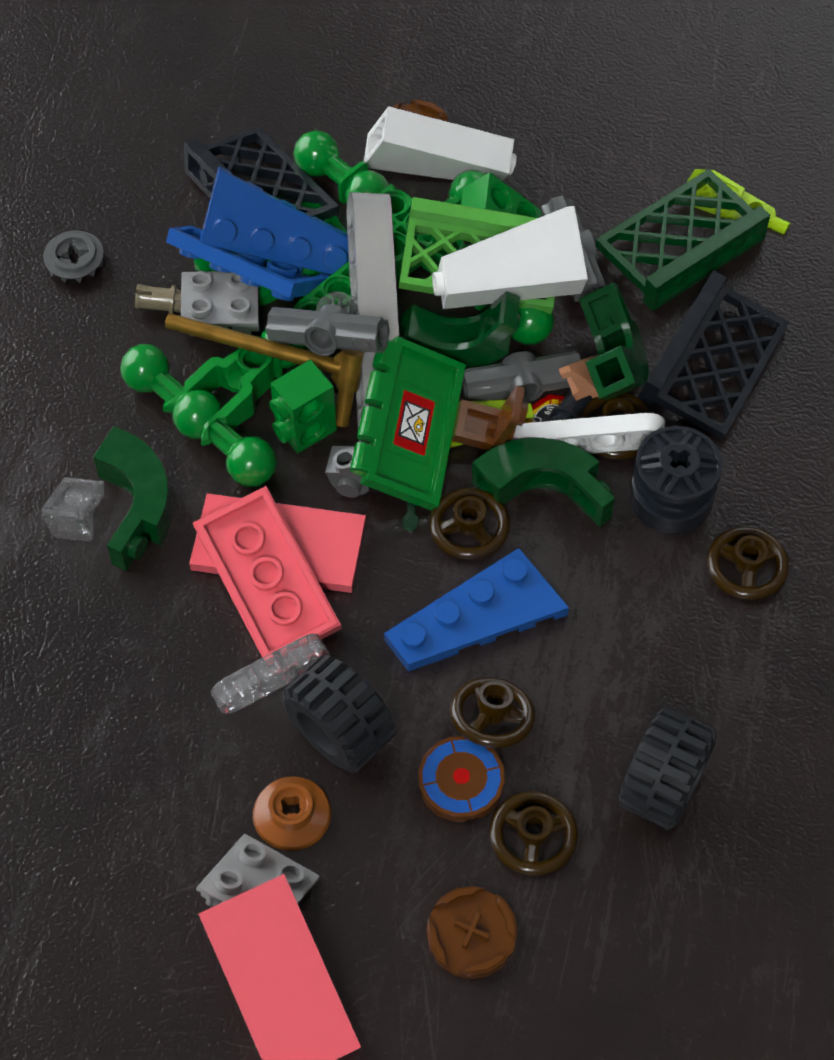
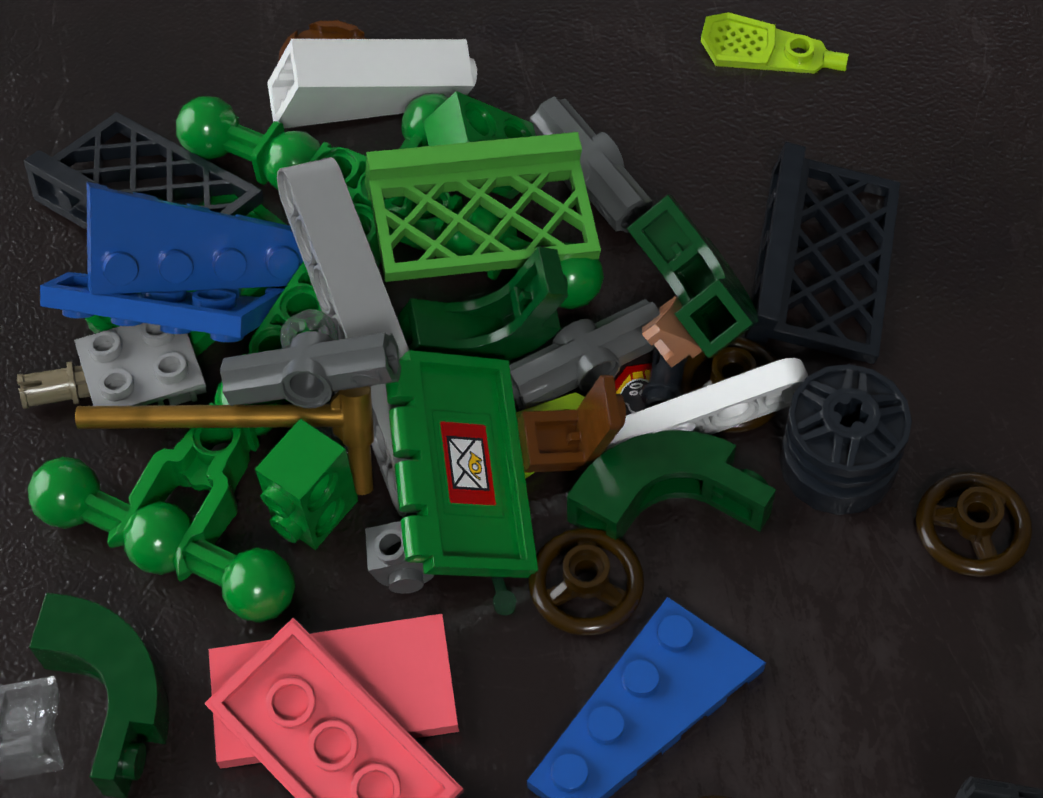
camera: 15 degrees left, 0 degrees up
(528, 261) = (547, 199): white slope -> none
(697, 262) = (753, 137): dark green fence -> none

